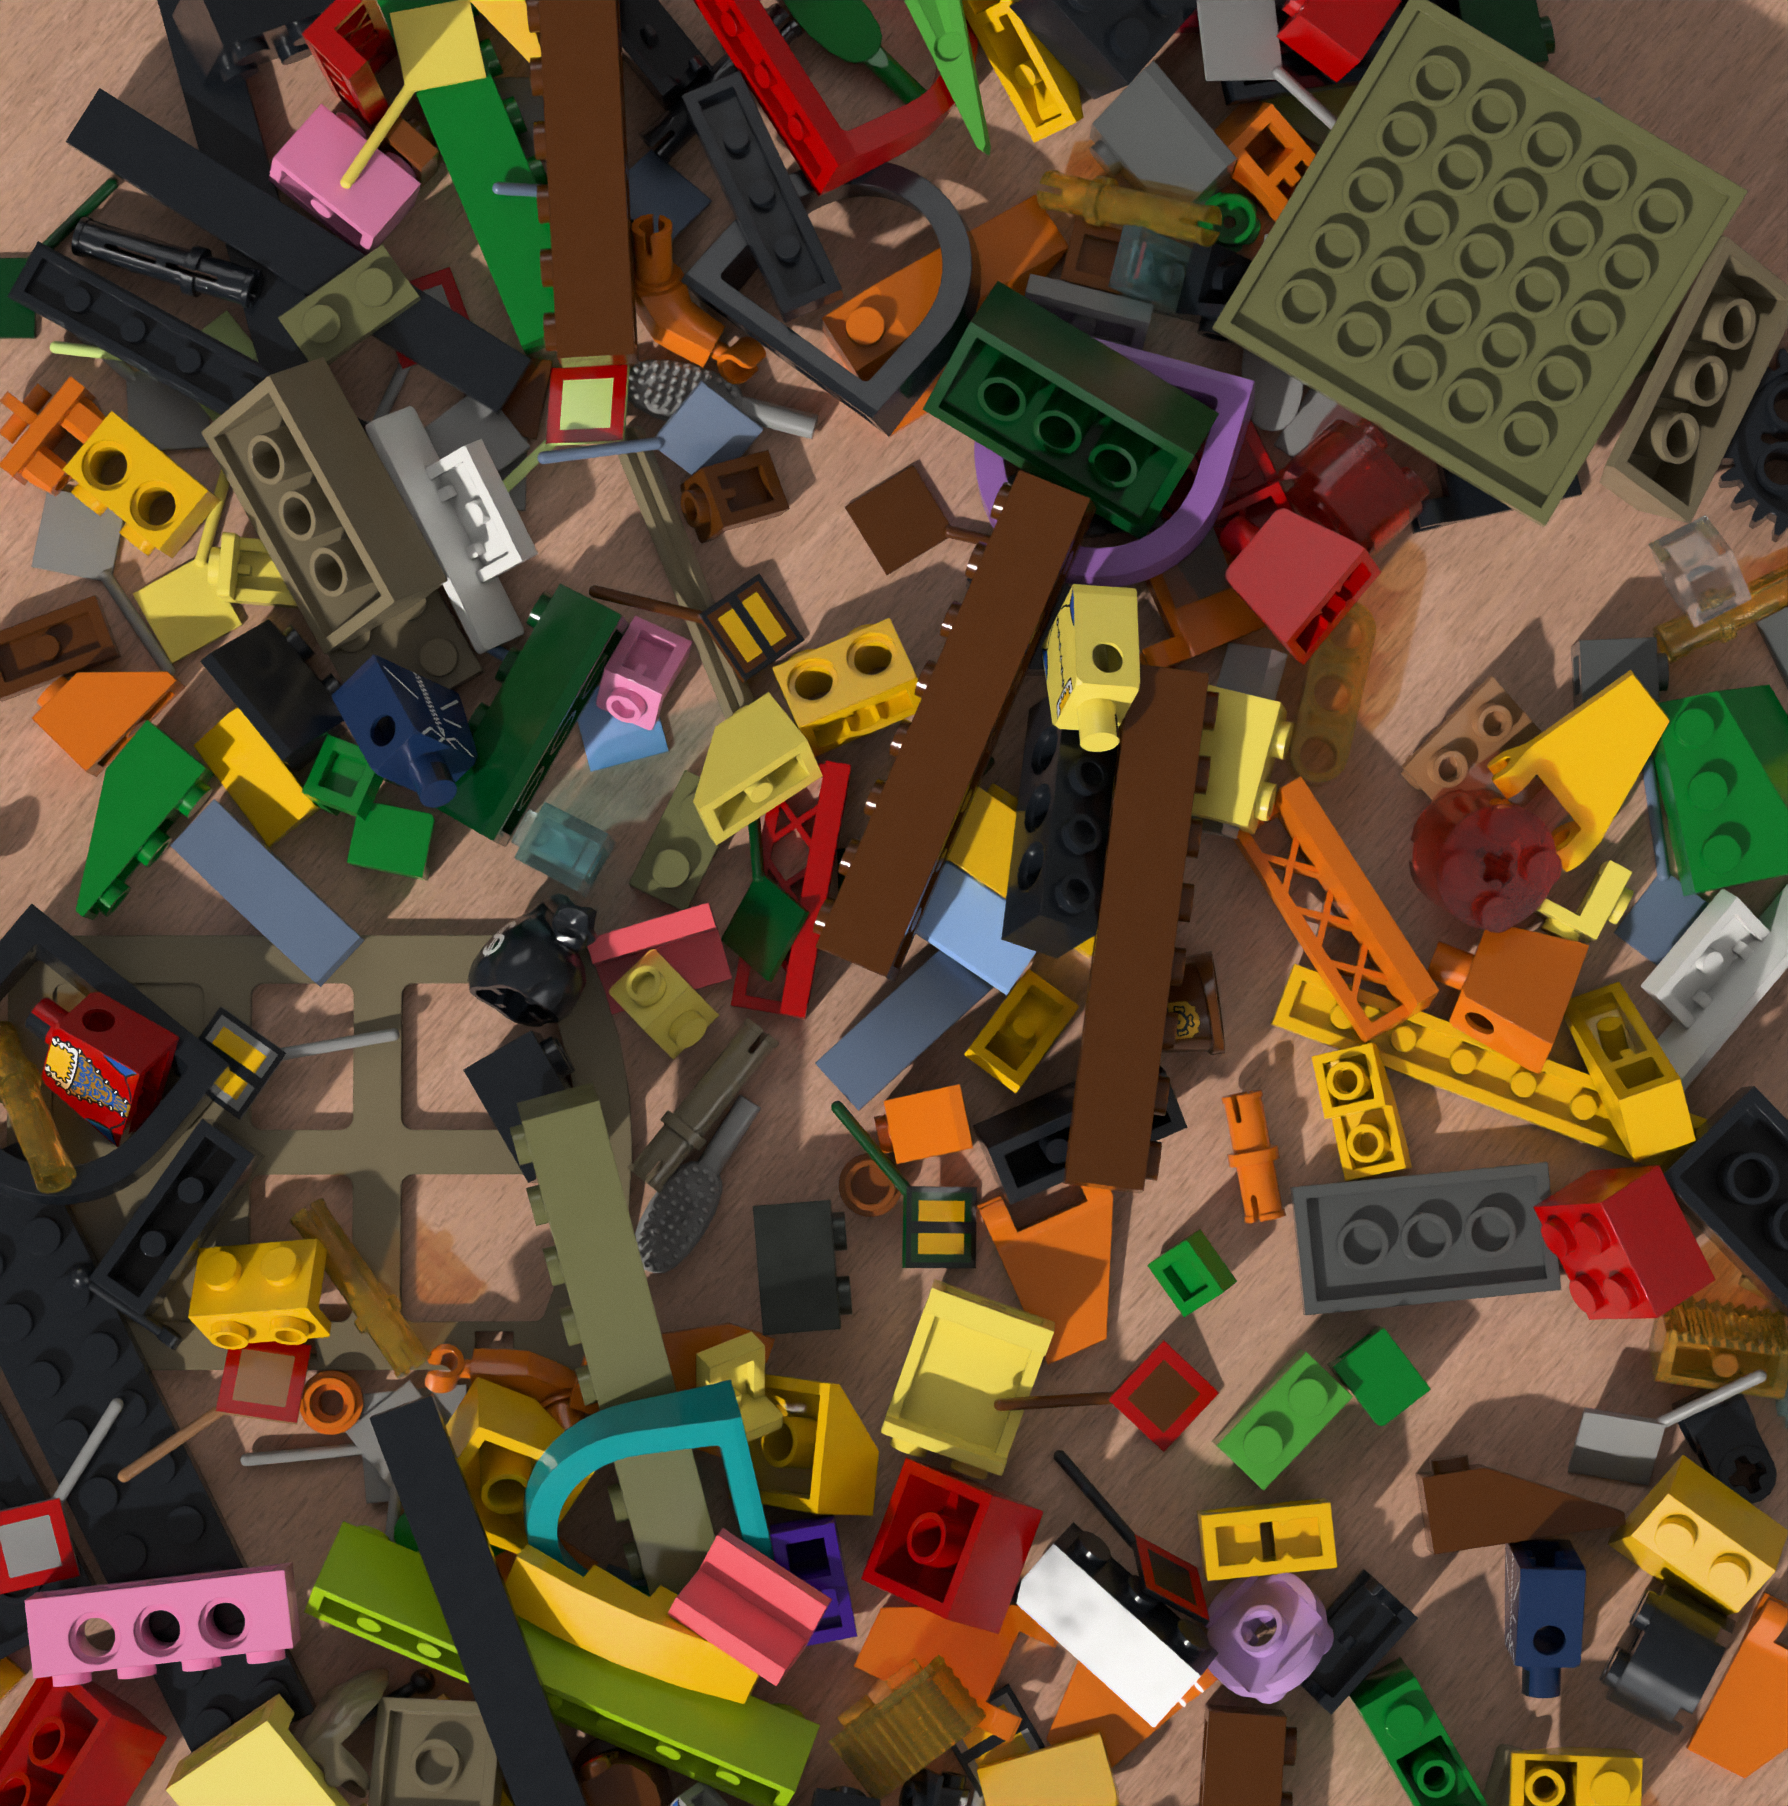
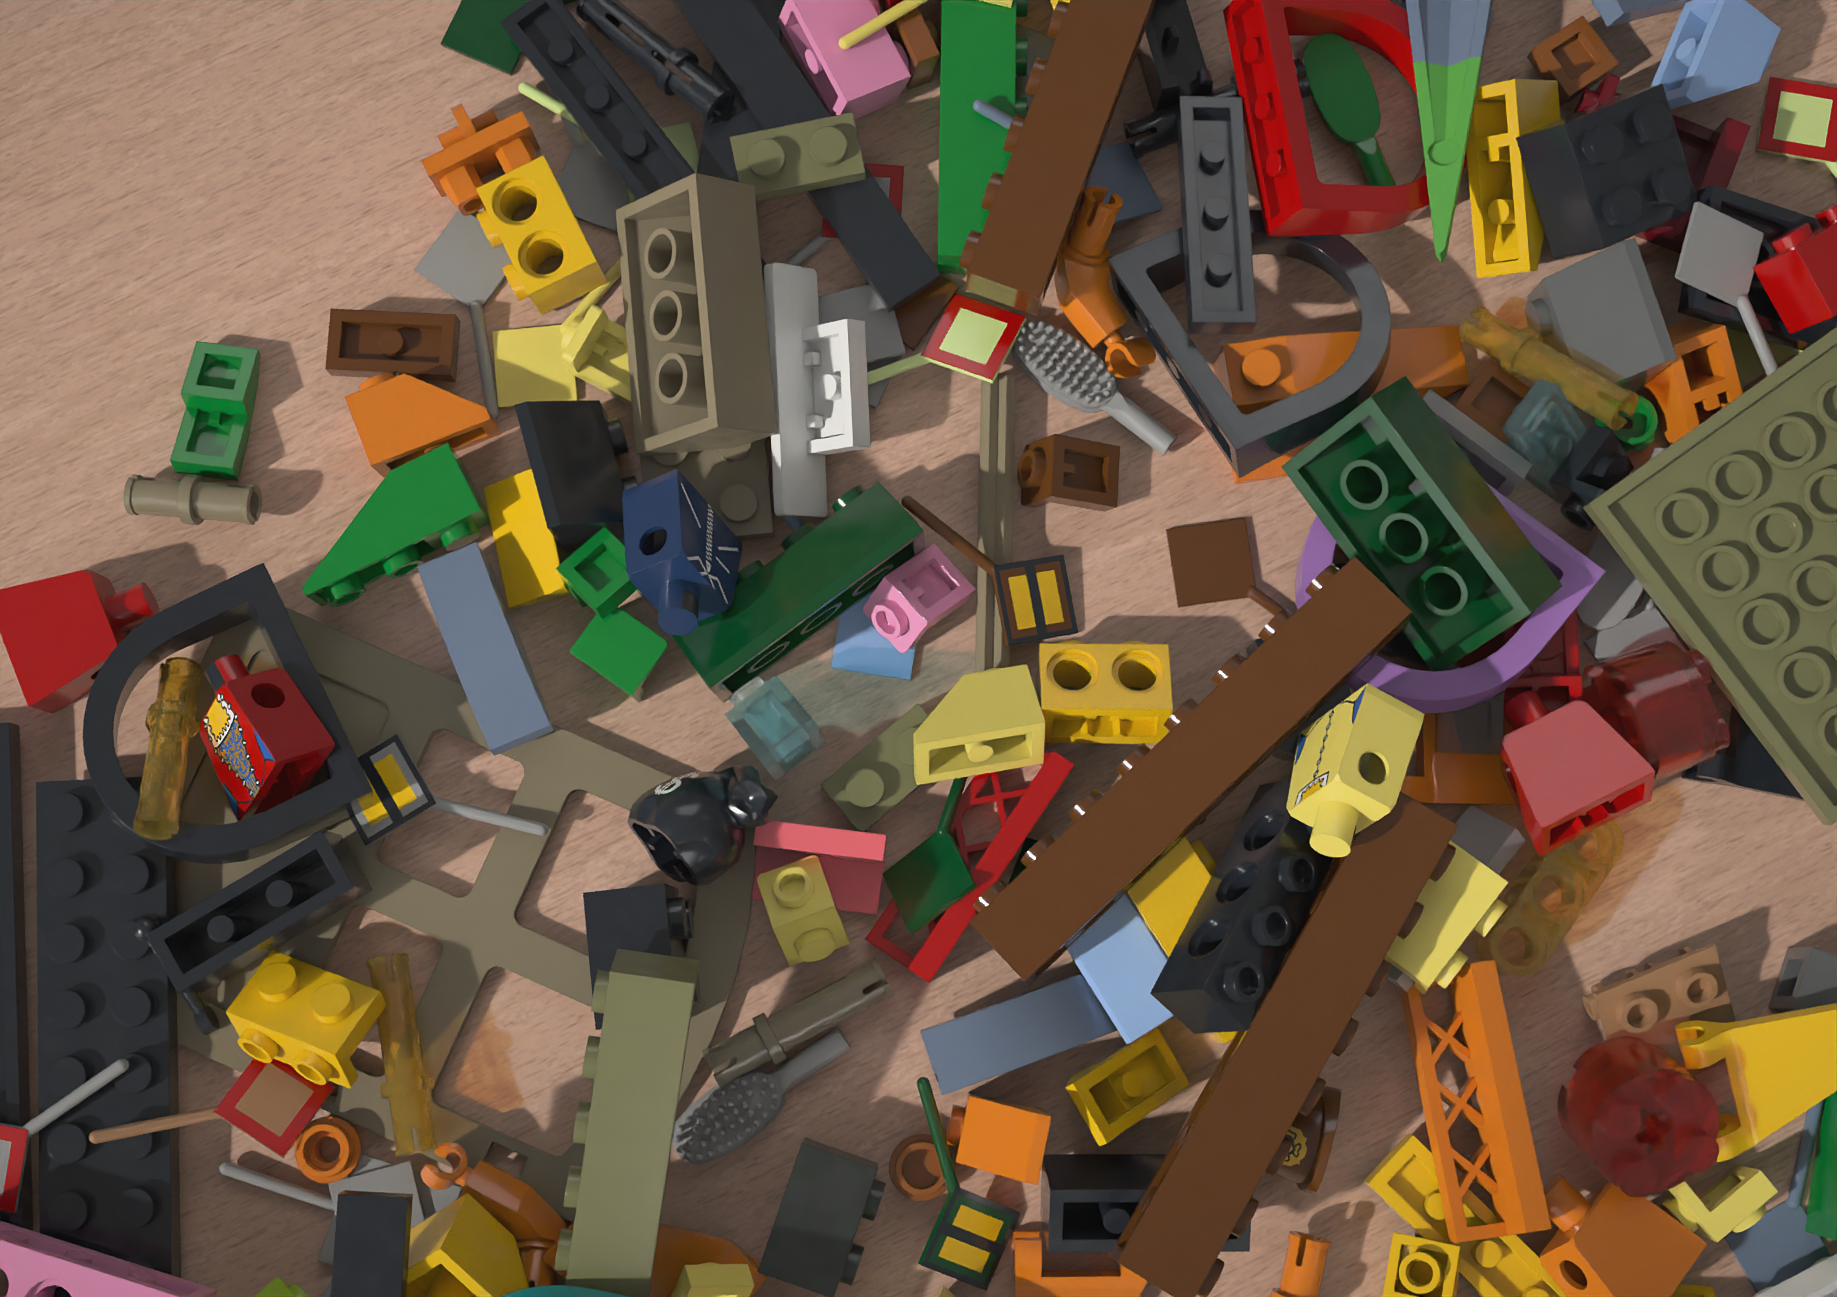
camera: 20 degrees right, 5 degrees down
(697, 435) = (1061, 404): sand blue piece -> none

